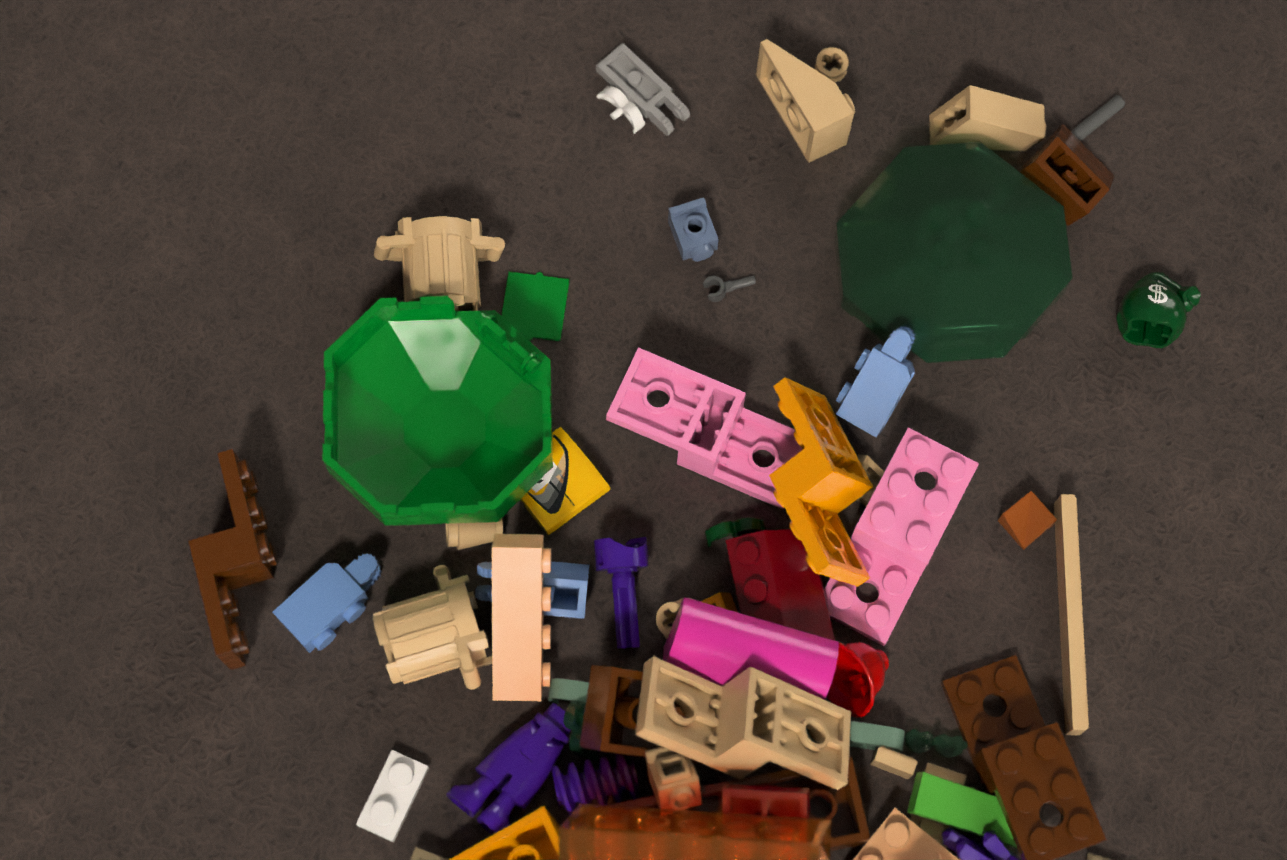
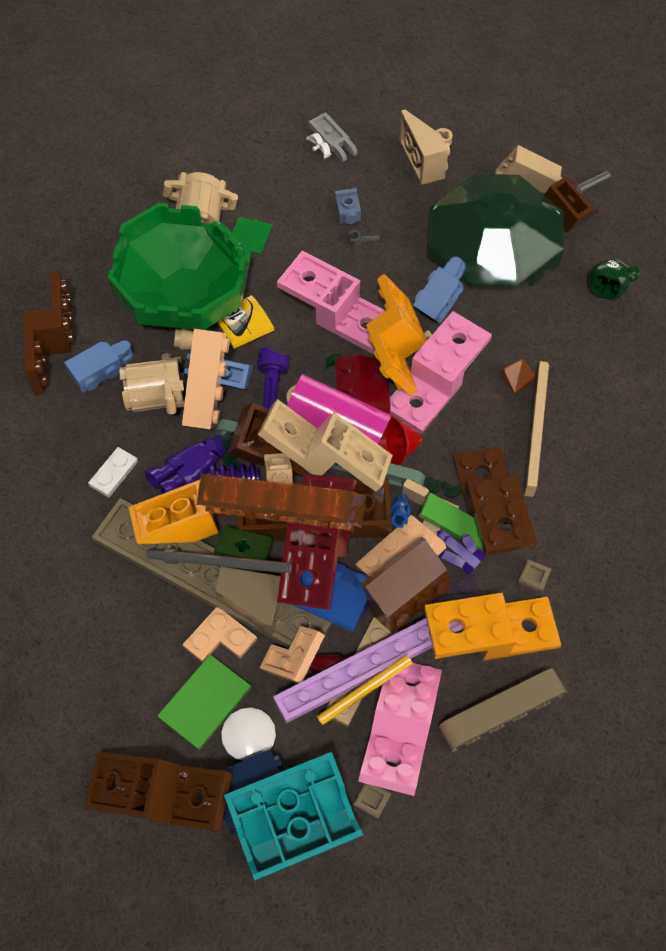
camera: 10 degrees right, 10 degrees down
(877, 805) = (400, 510): none -> blue pin

